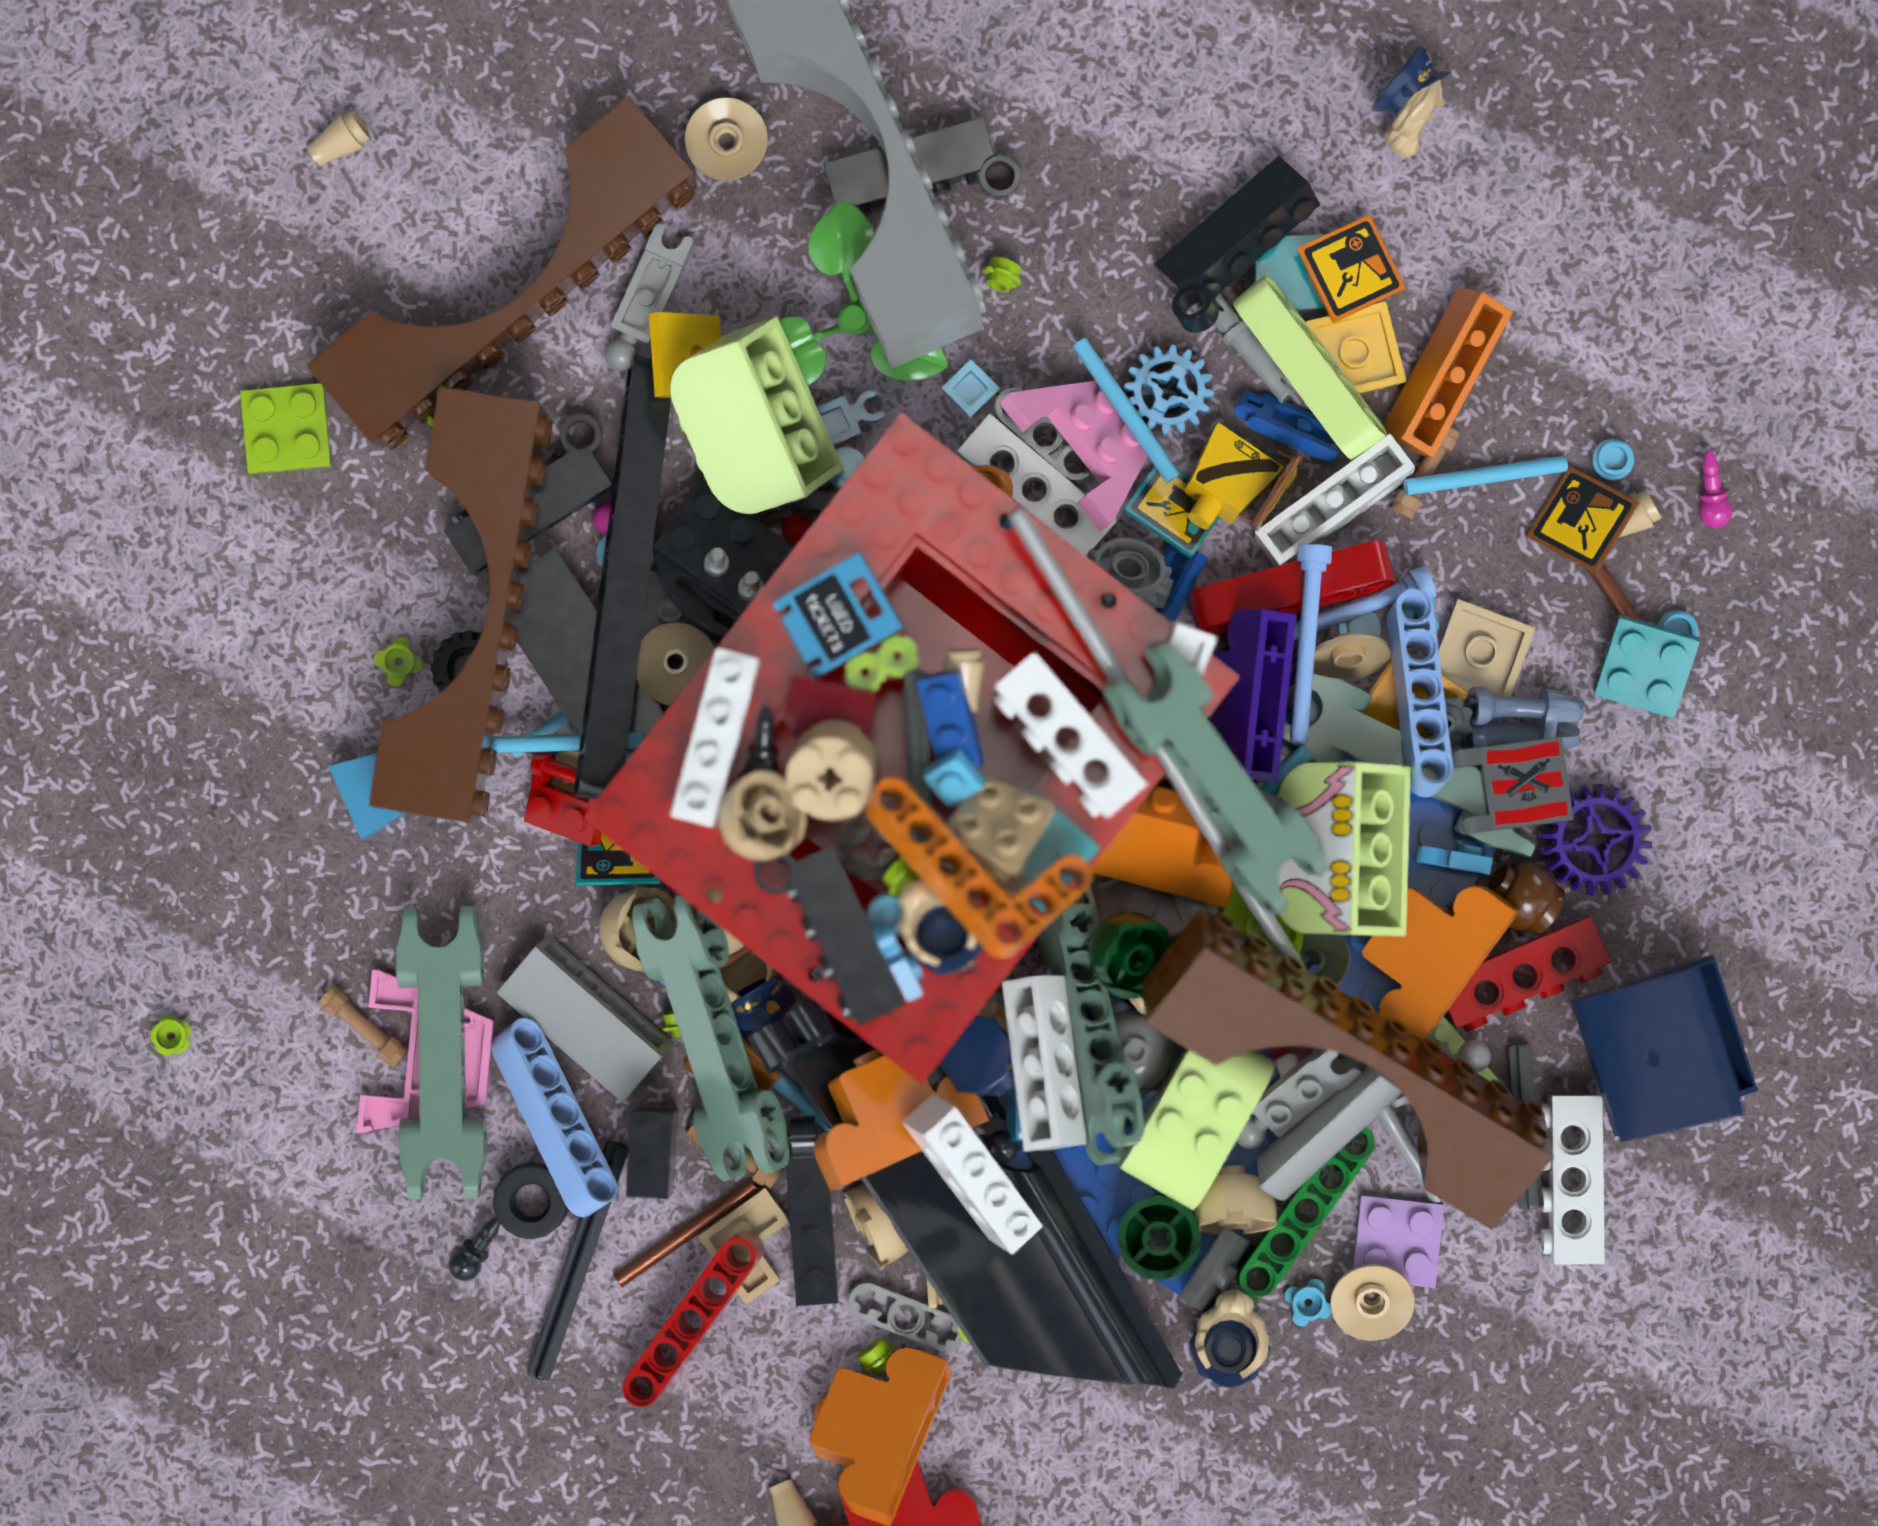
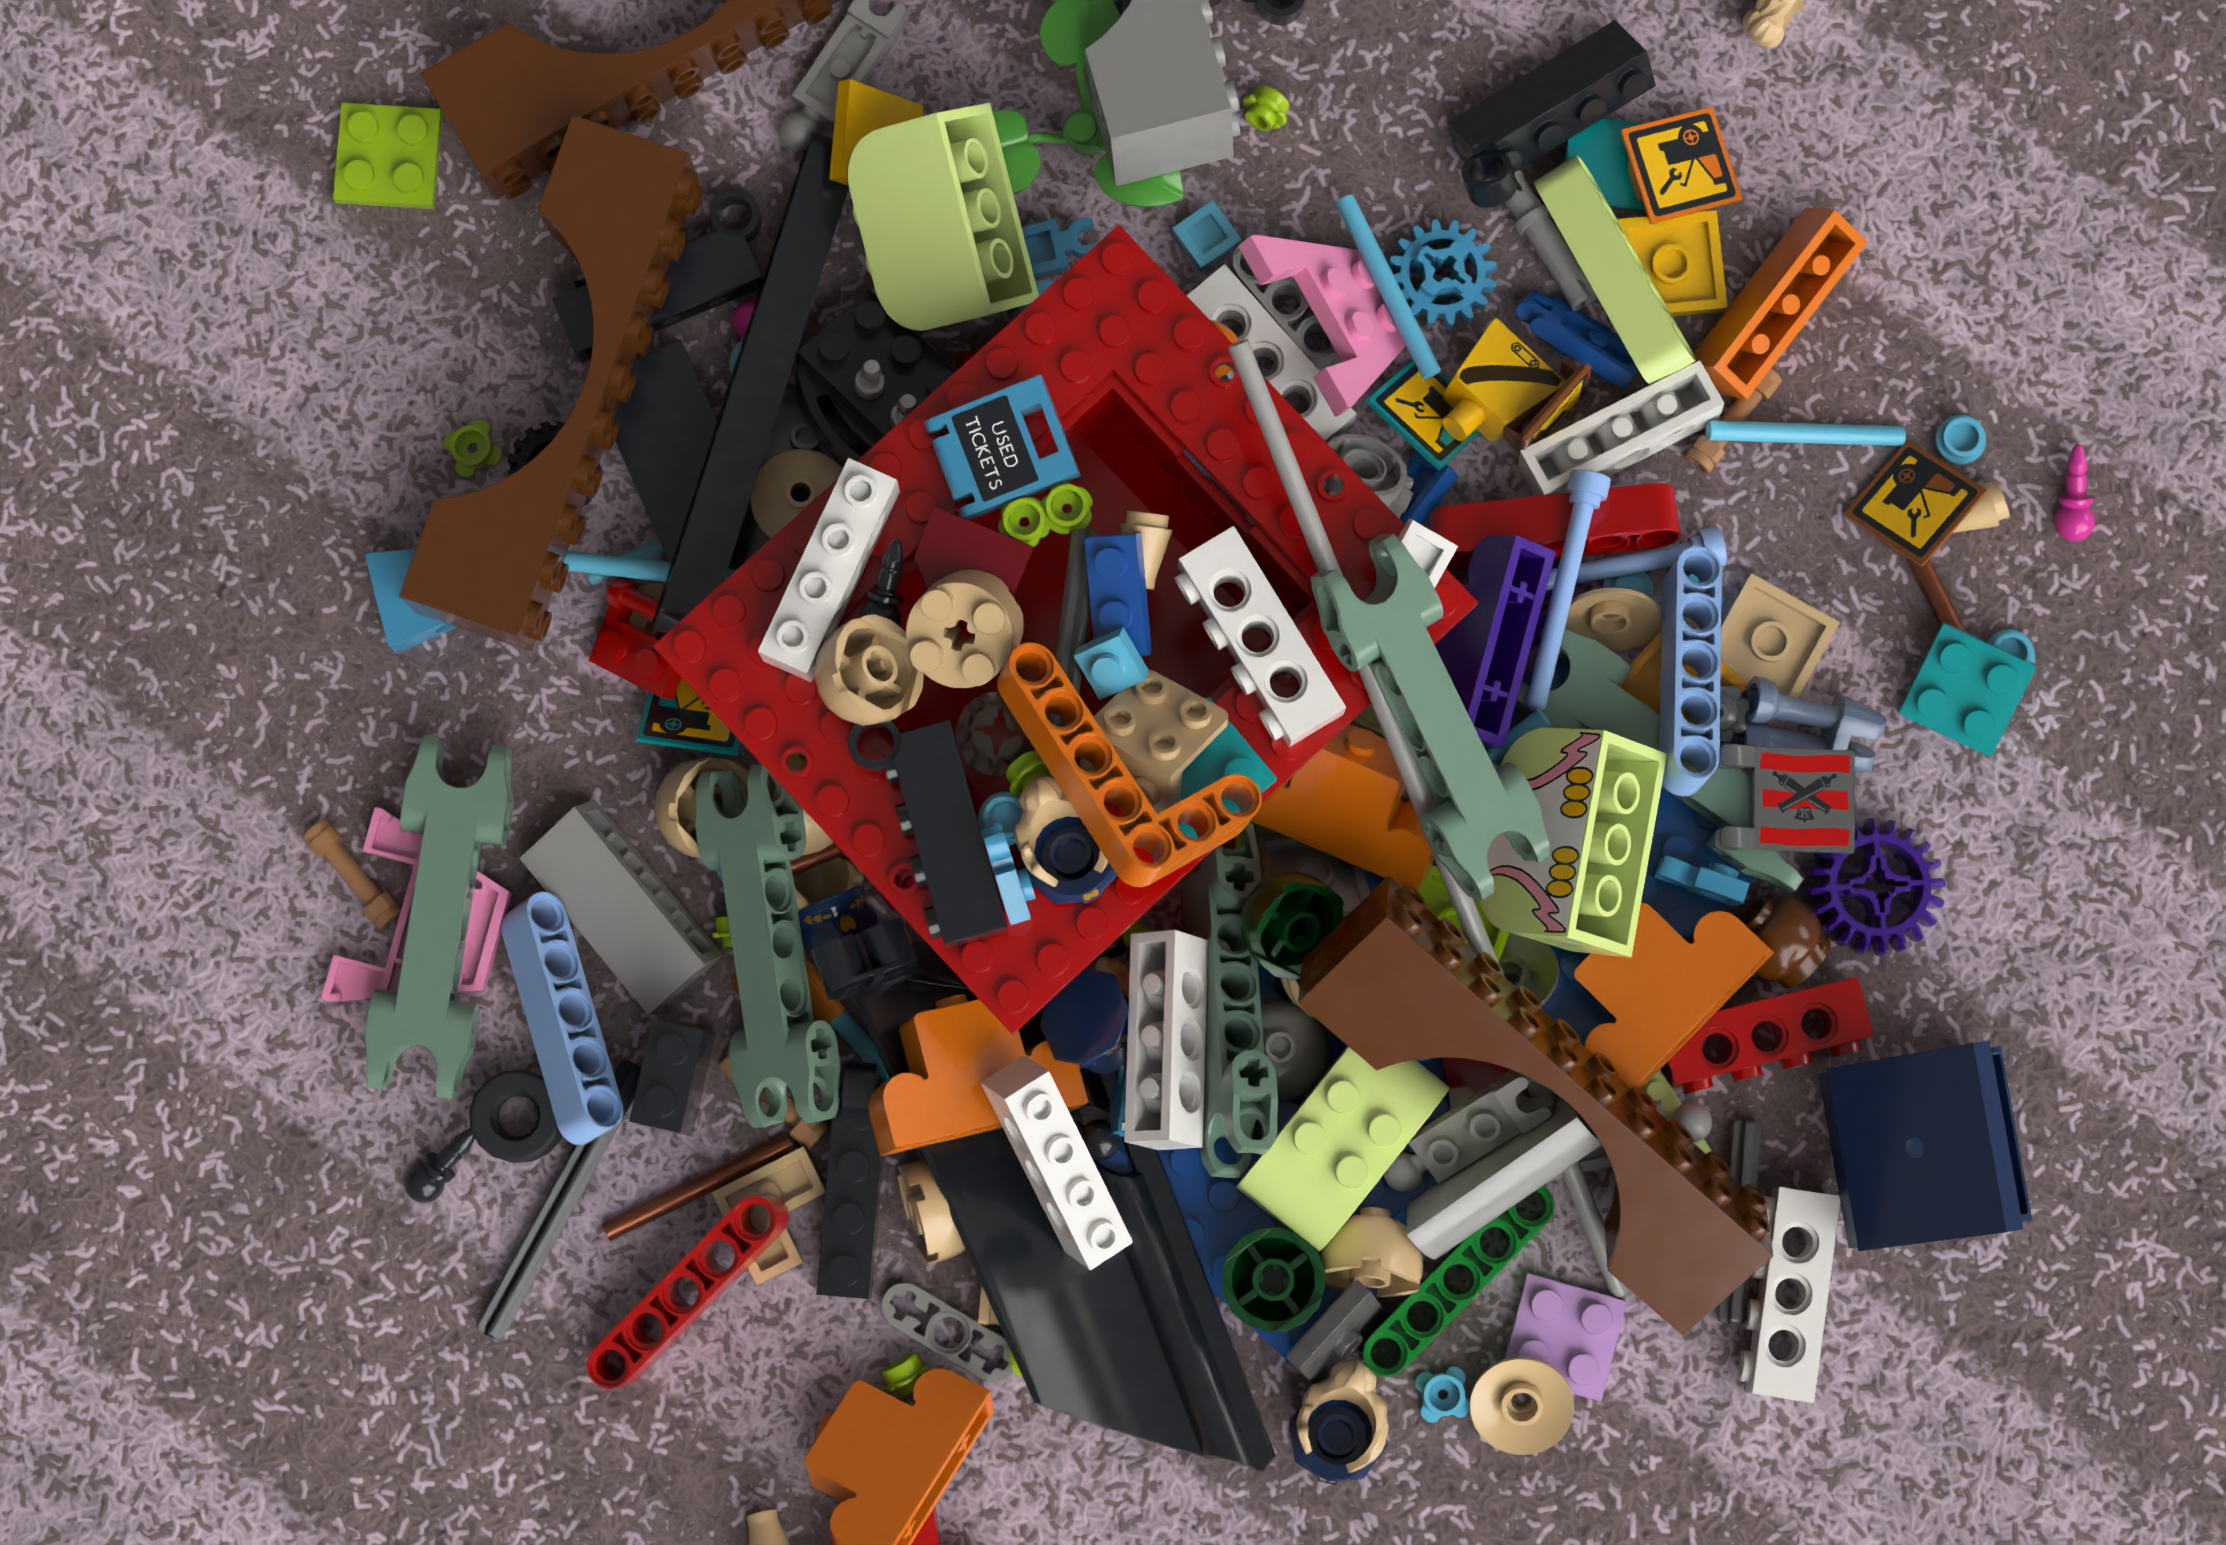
camera: 10 degrees right, 5 degrees down
(160, 1039) = (106, 846): lime plate -> none

